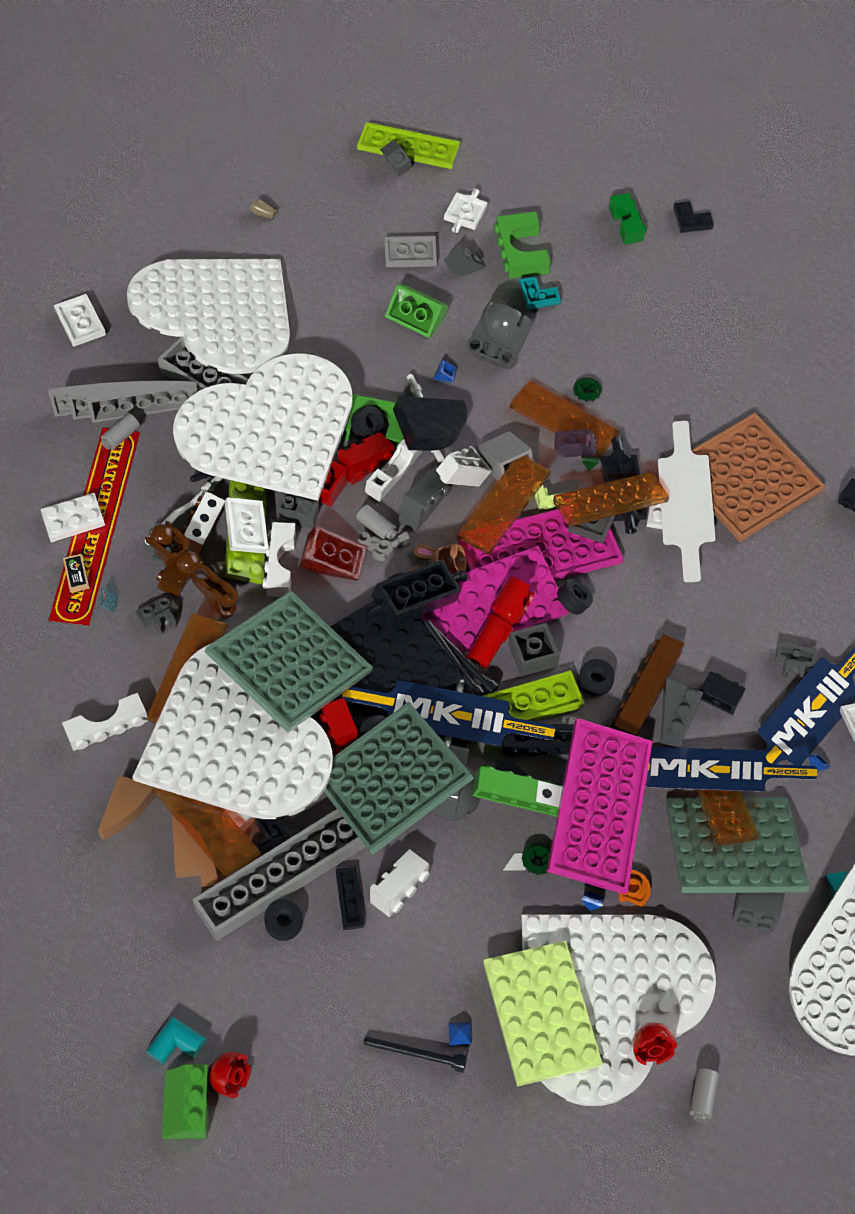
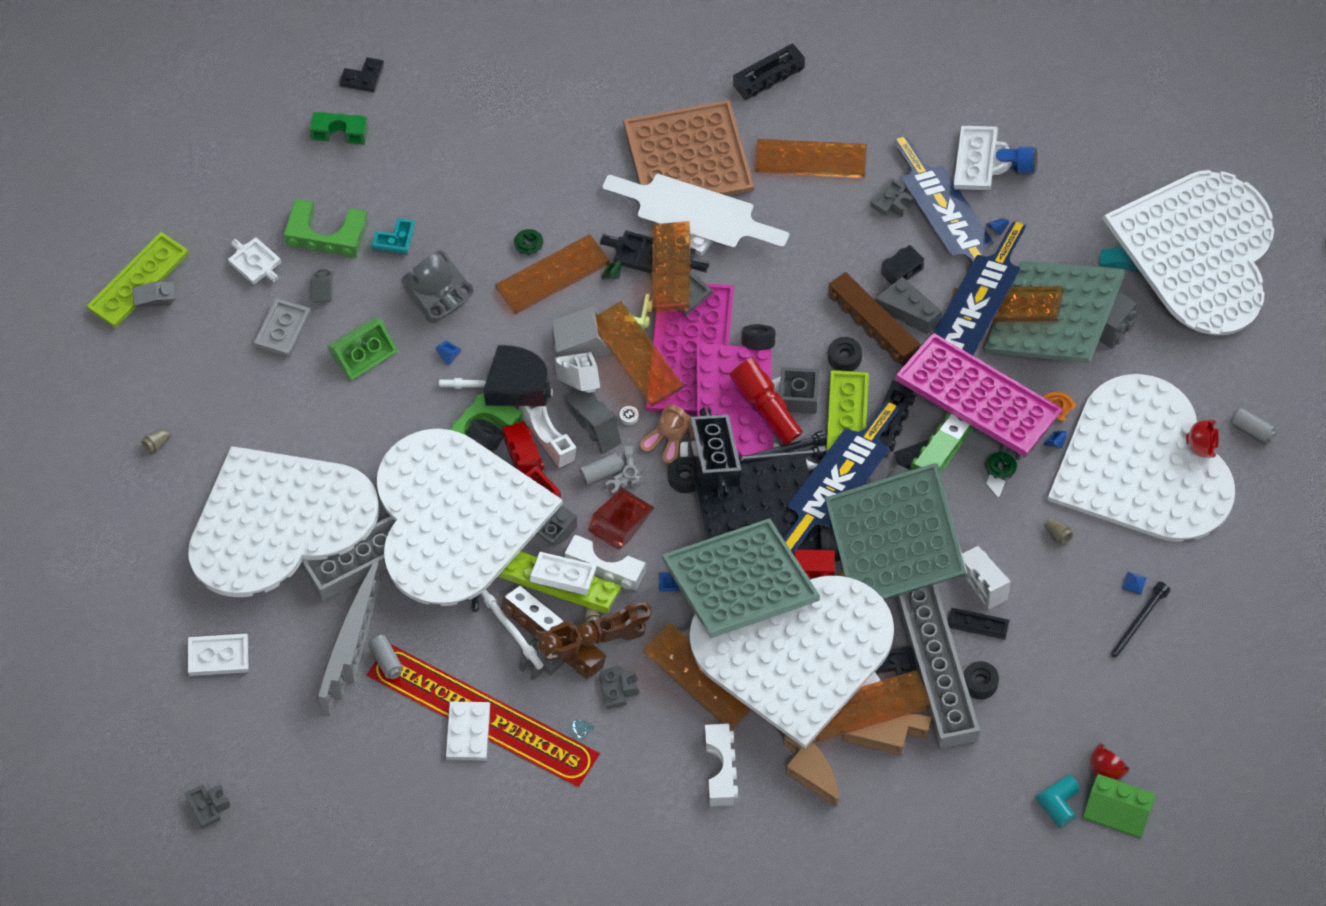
camera: 65 degrees left, 0 degrees up
(76, 573) = (537, 745): tile -> none
(445, 527) = (628, 415): none -> white tile
(485, 938) = (1059, 531): none -> dark tan cone
(542, 1013) = (1144, 512): yellowish green plate -> none
(575, 443) = (593, 272): clear purple brick -> none
(803, 577) = (811, 158): none -> clear orange plate

